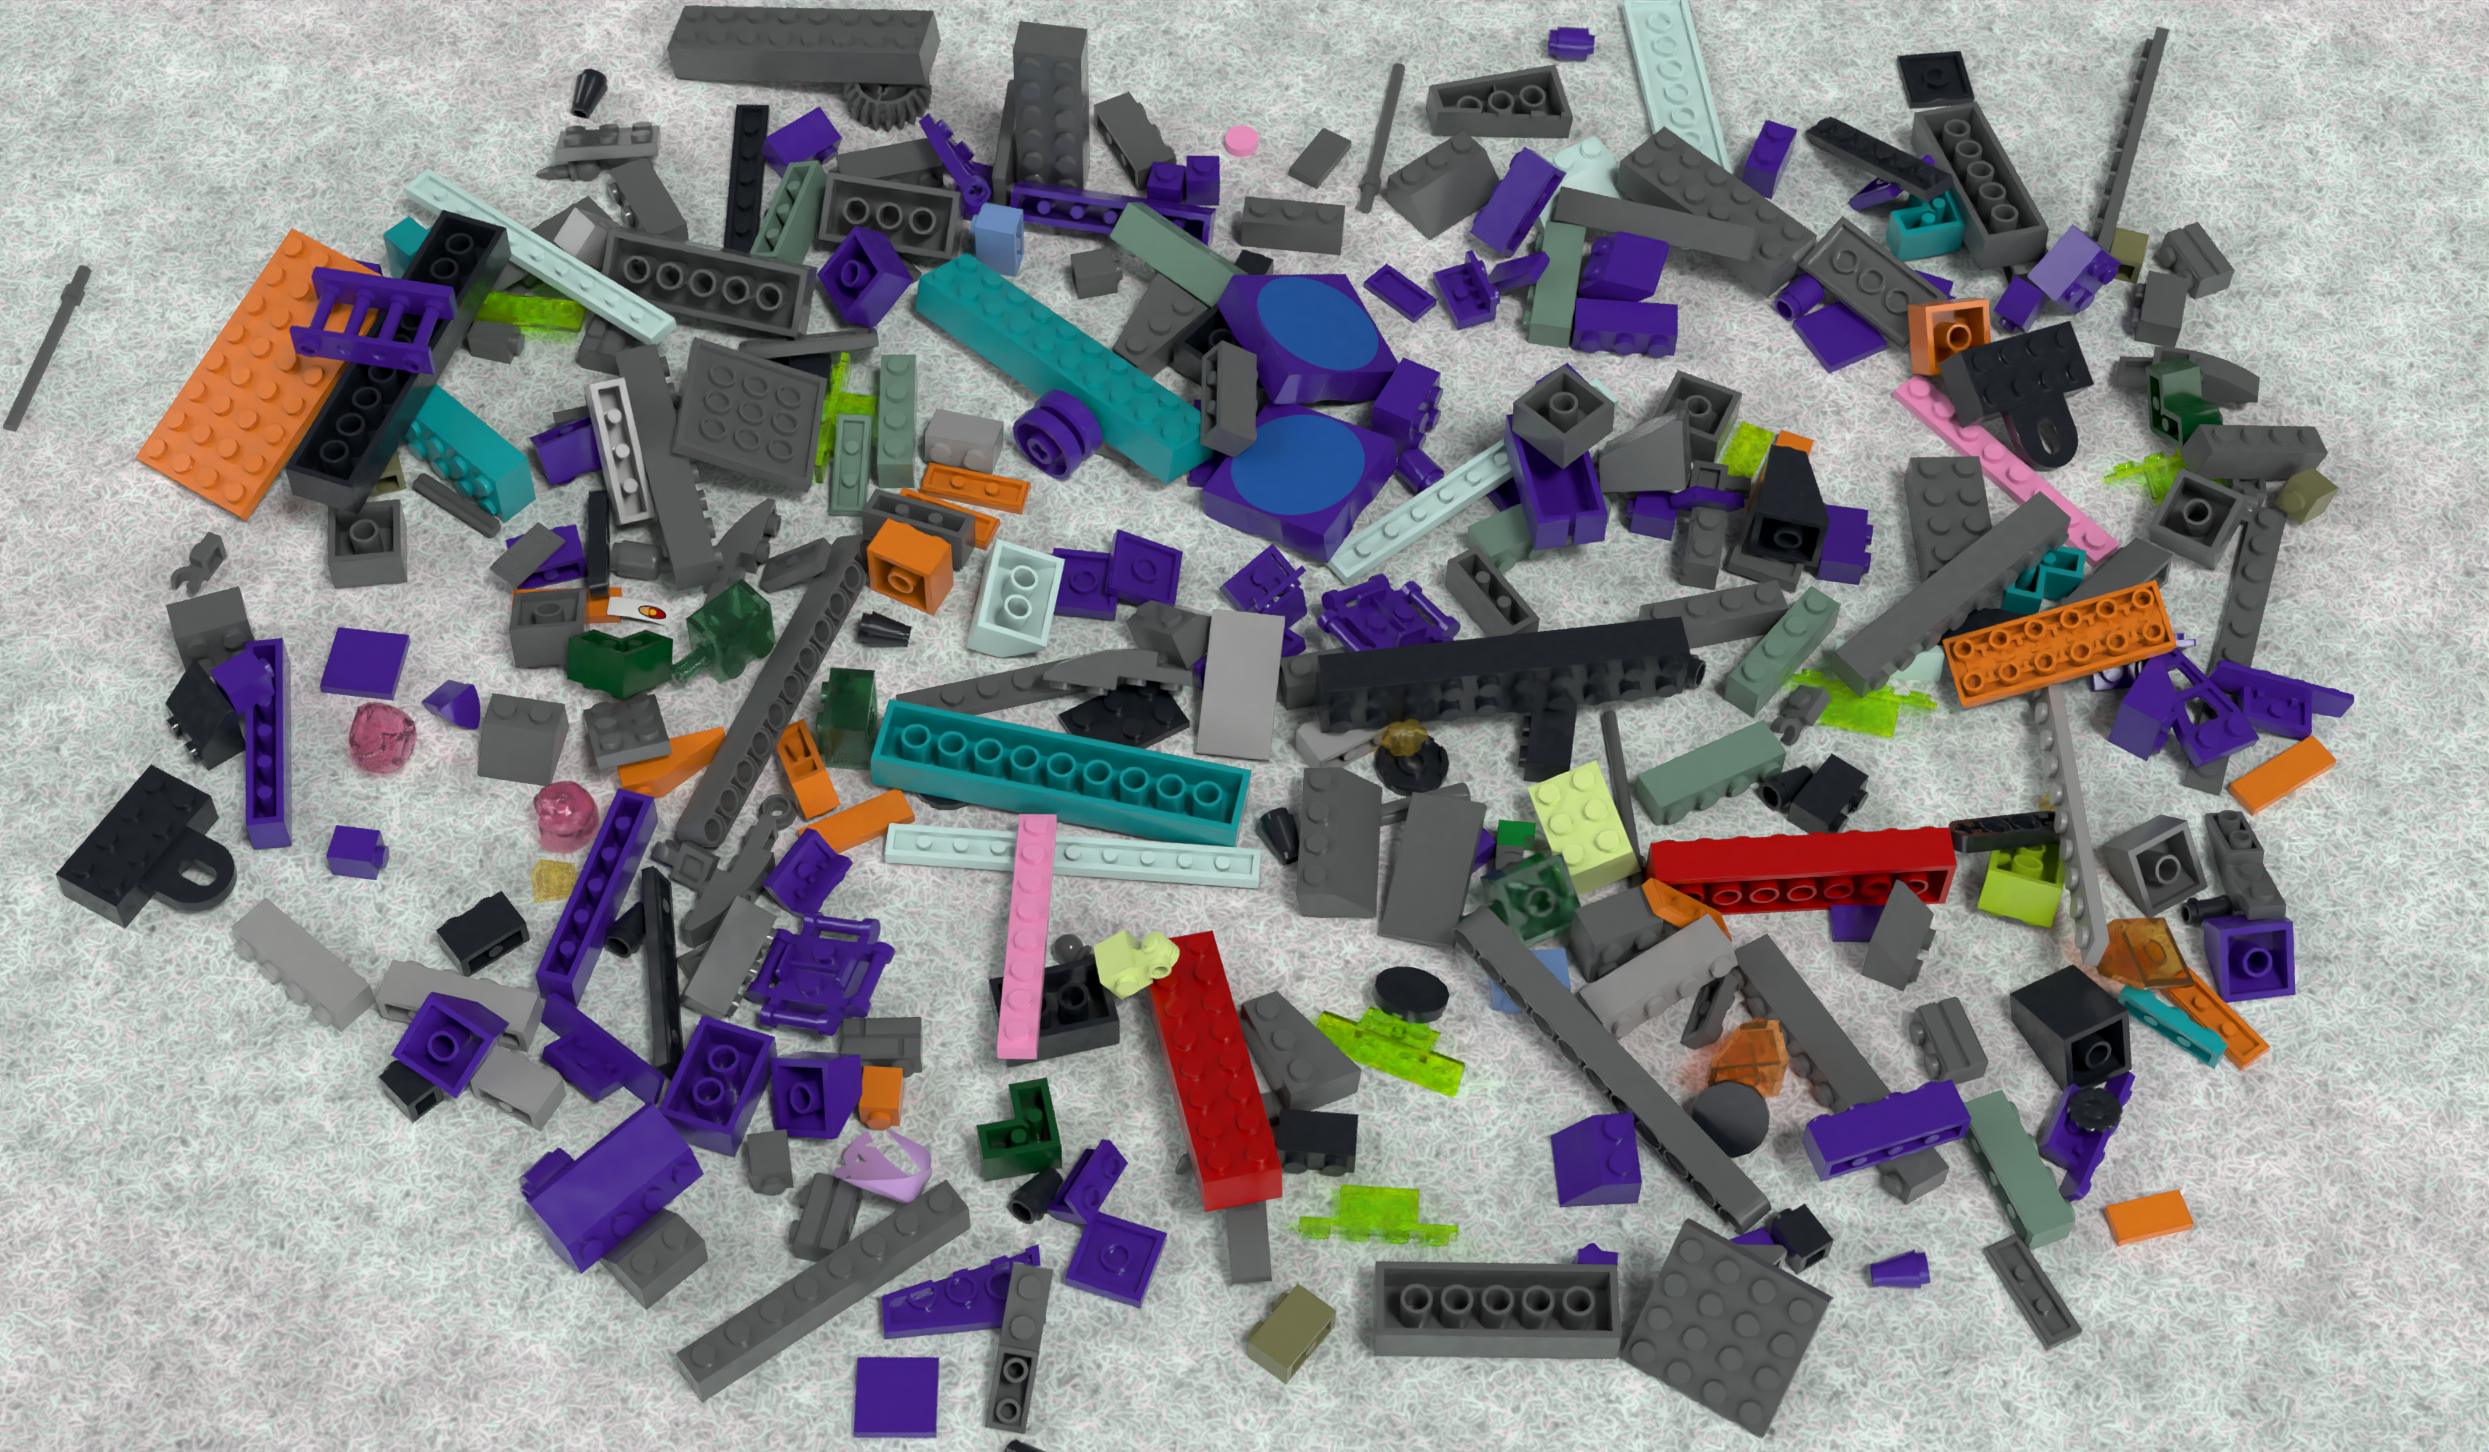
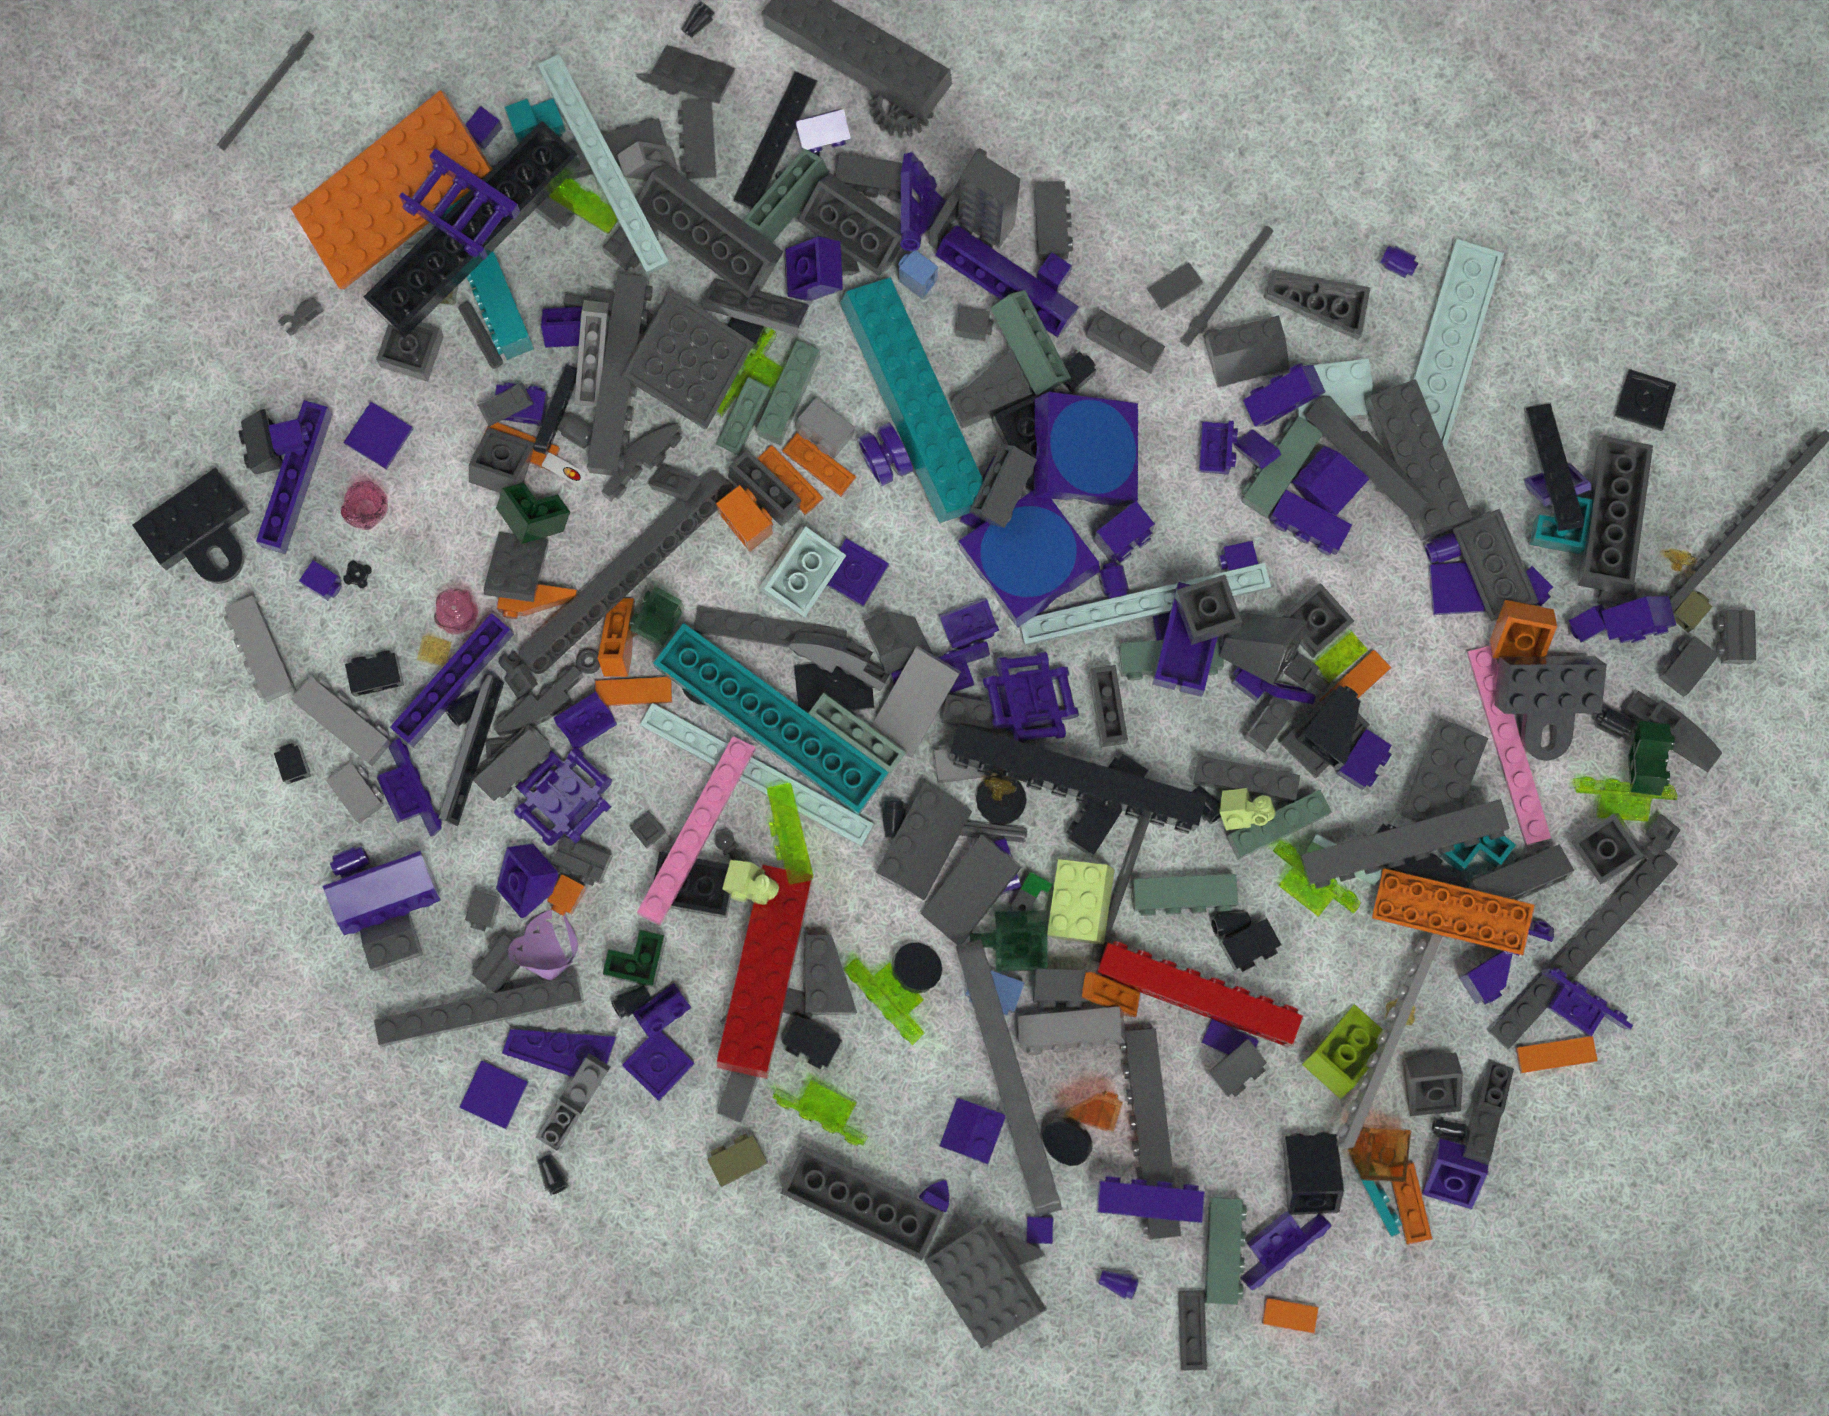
camera: 25 degrees right, 25 degrees up
(211, 628) = (288, 380): dark grey brick -> none
(404, 821) = (353, 568): none -> black plate
(450, 1041) = (321, 755): dark purple slope -> none
(455, 703) = (420, 493): dark purple tile -> none
(522, 739) = (451, 541): dark grey slope -> none
(719, 1085) = (471, 847): dark purple brick -> none
(727, 635) = (605, 522): clear green brick -> none
(883, 631) = (710, 553): black cone -> none
(957, 977) = (648, 830): none -> dark grey plate
(1142, 569) = (896, 581): dark purple tile -> none
(1152, 897) = (789, 834): none -> clear neon green bracket
(1184, 737) = (857, 732): none -> sand green brick
(1203, 180) = (1082, 276): dark purple brick -> none
(1241, 141) = (1128, 248): bright pink tile -> none
(1400, 293) = (1174, 425): dark purple tile -> none
(1709, 1012) = (1093, 1063): dark grey plate -> none
(1729, 645) = (1240, 812): none -> yellowish green brick
(1769, 158) = (1484, 424): dark purple brick -> none
(1802, 709) = (1269, 873): dark grey plate -> none
(1802, 1237) = (1069, 1235): black brick -> none
(1948, 1042) = (1231, 1148): dark grey brick -> none
(2004, 832) = (1348, 1019): black beam -> none
(2078, 213) = (1679, 558): none -> clear yellow plant
(2095, 1109) = (1292, 1238): black piece -> none
(2114, 396) = (1615, 722): none -> black brick
(2214, 738) = (1525, 1015): dark purple plate -> none
(2252, 451) = (1677, 815): dark grey brick -> none
(2306, 495) = (1697, 859): olive brick -> none

